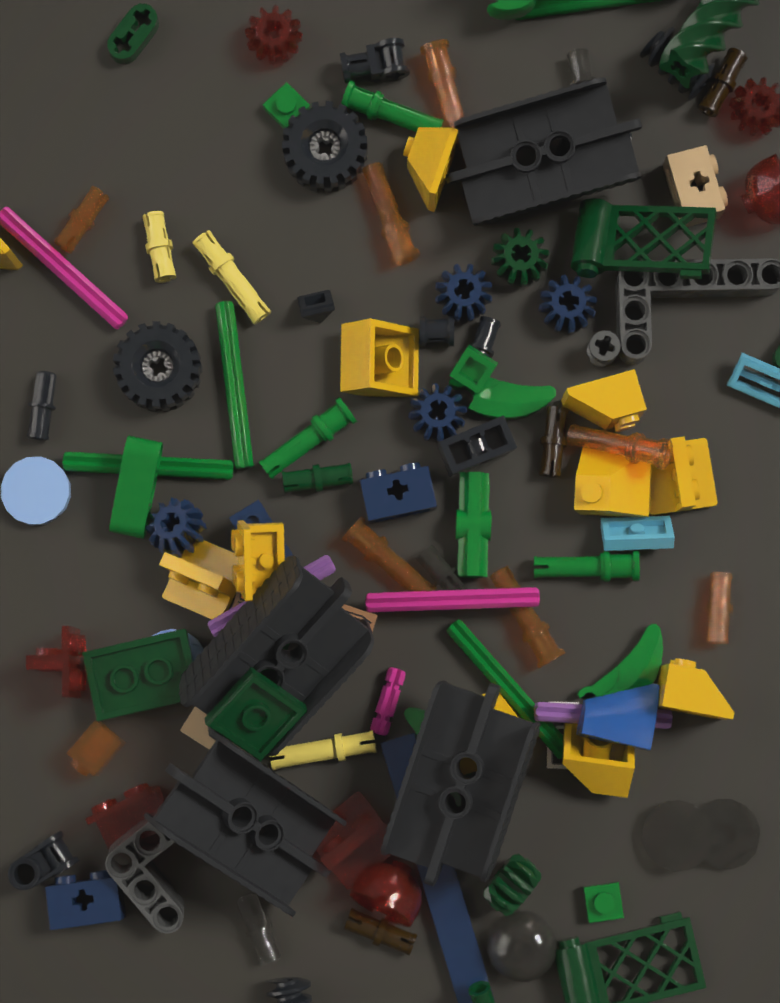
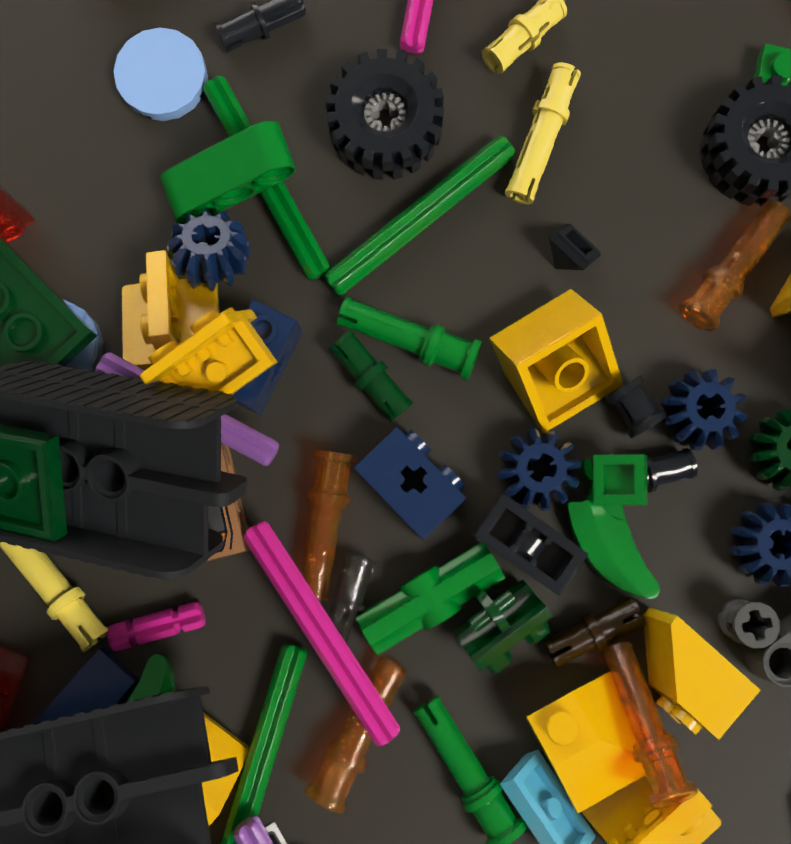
camera: 60 degrees right, 0 degrees up
(514, 492) = (503, 624): none -> dark green hips

